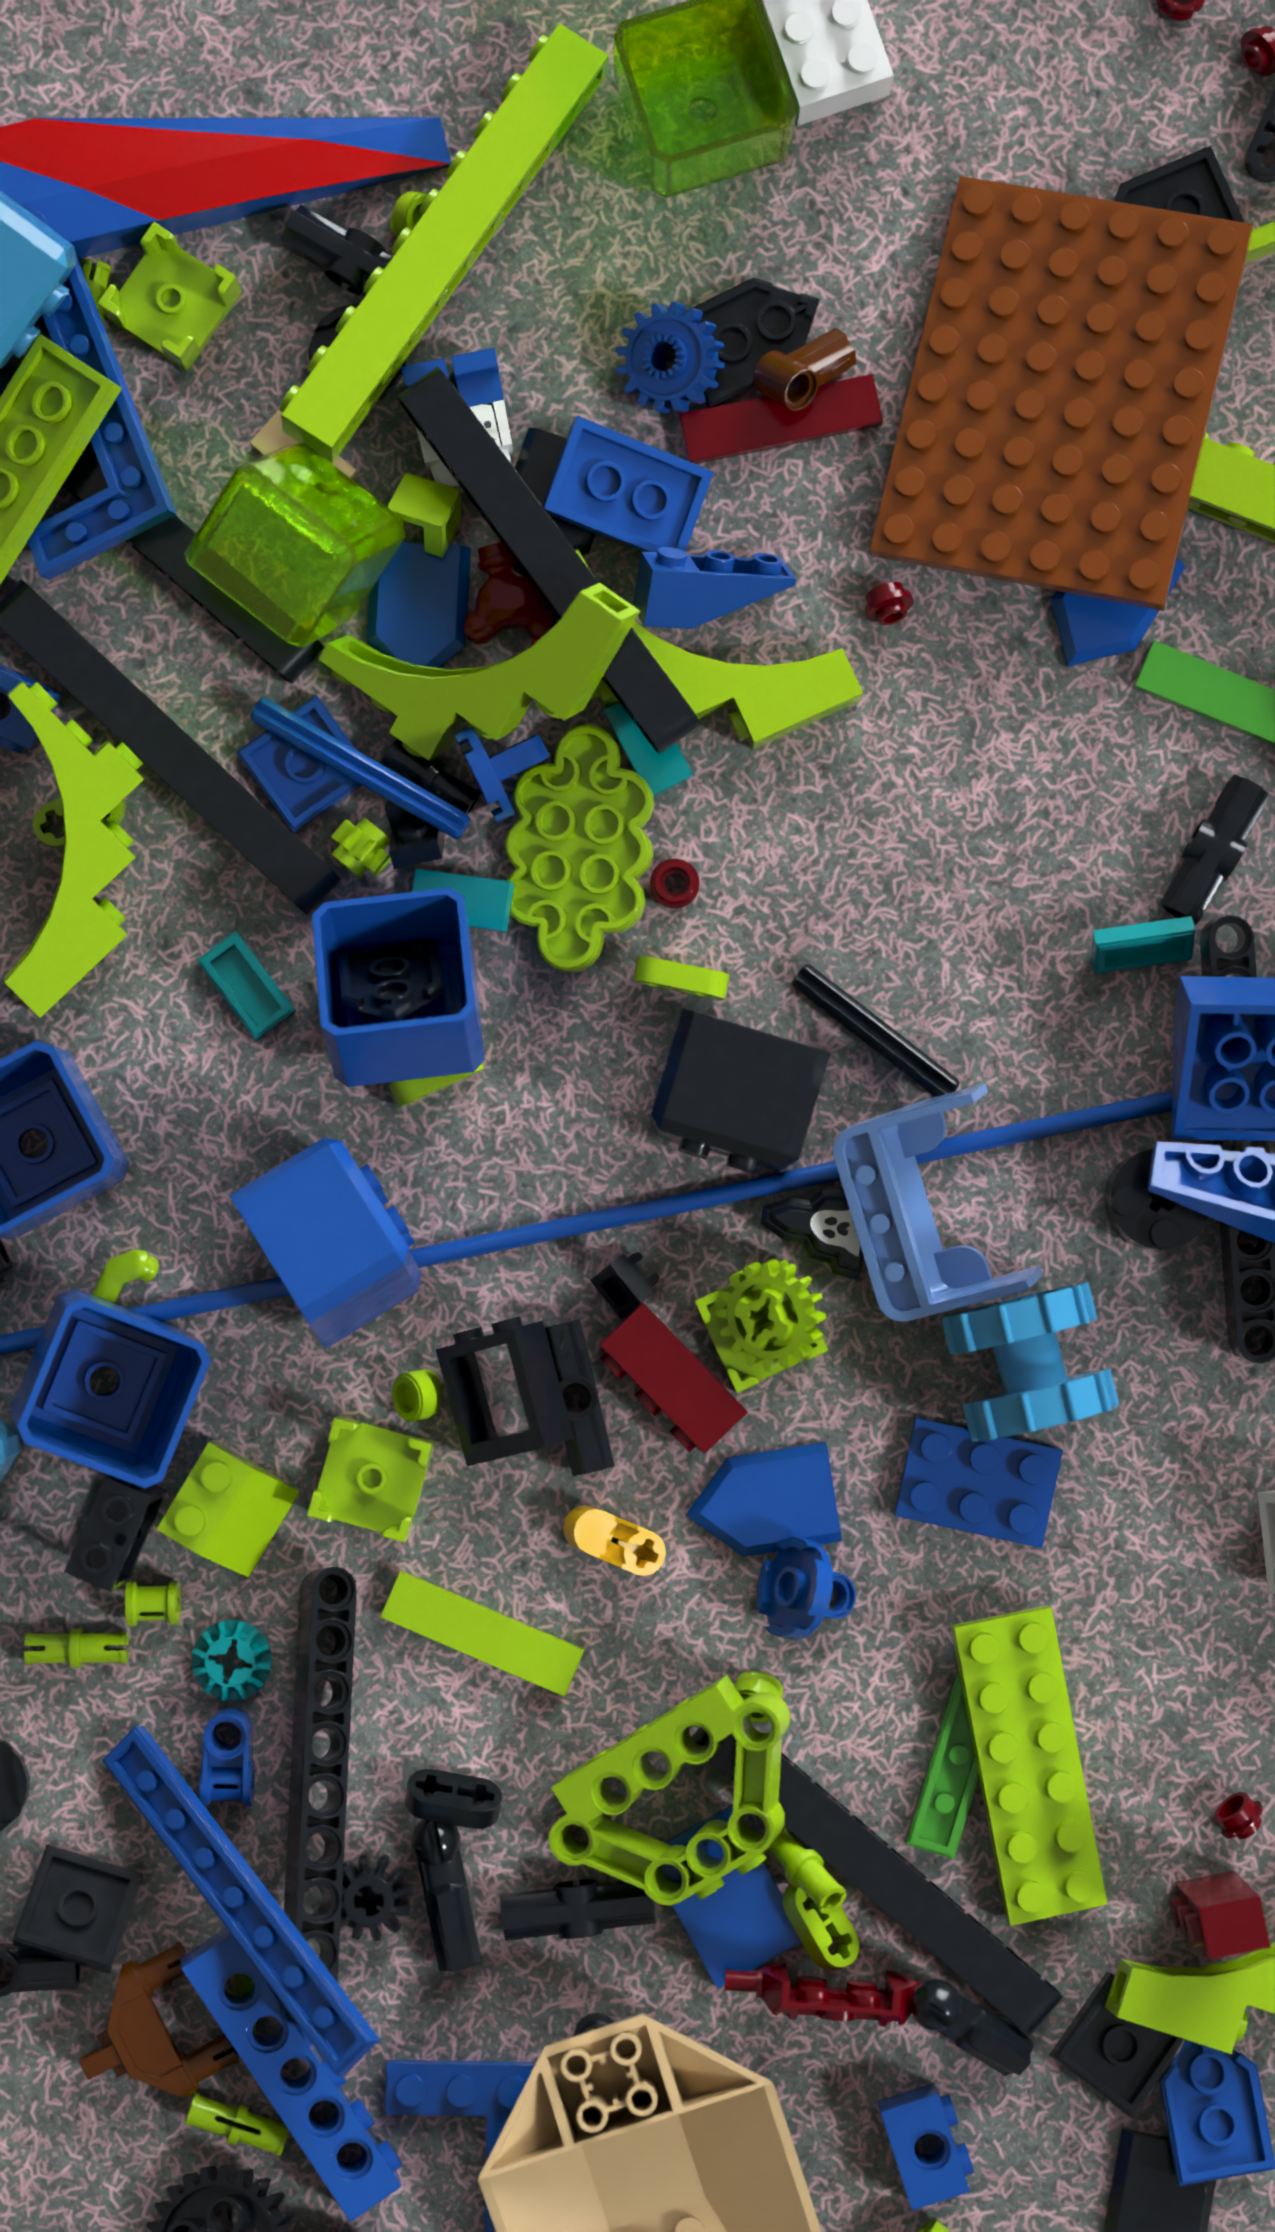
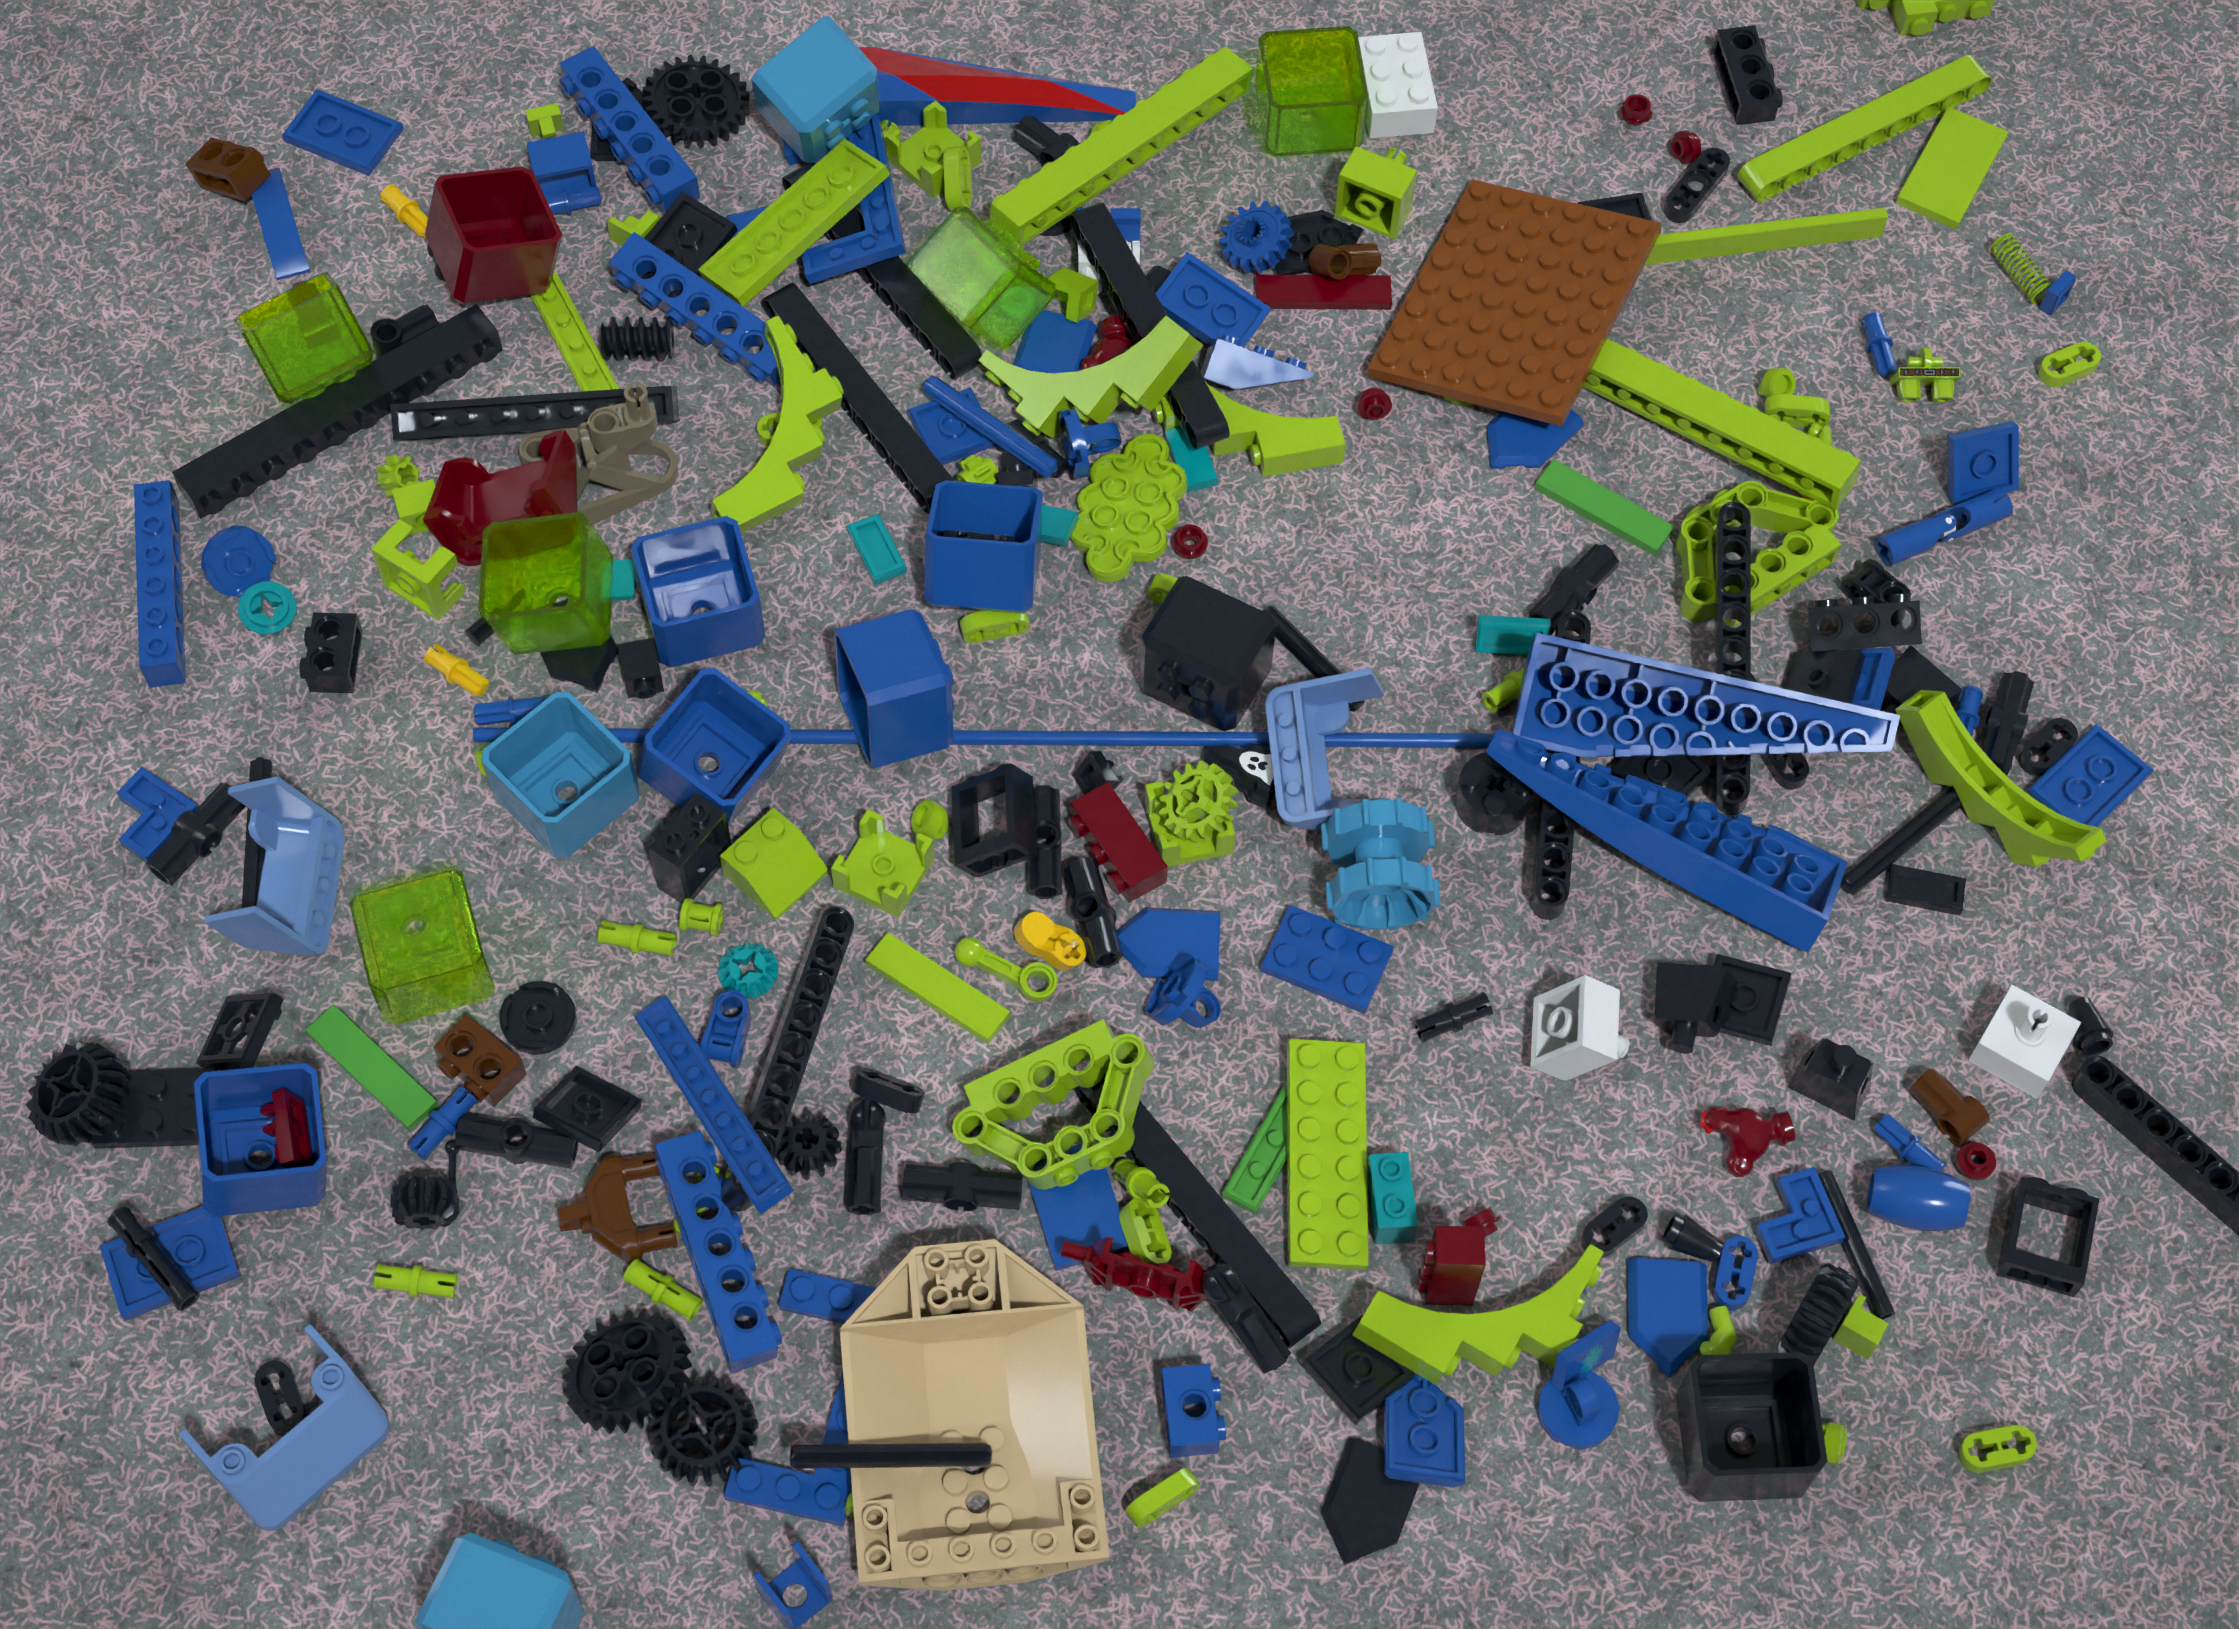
camera: 10 degrees right, 25 degrees down
(217, 344) = (957, 177): none -> lime beam
(515, 1578) = (972, 953): none -> lime piece
(678, 1518) = (1099, 928): none -> black piece
(830, 240) = (1376, 191): none -> lime brick
(1122, 1813) = (1391, 1198): none -> teal brick
(1152, 1026) = (1503, 692): none -> lime pin
(1156, 1535) = (1453, 1017): none -> black pin

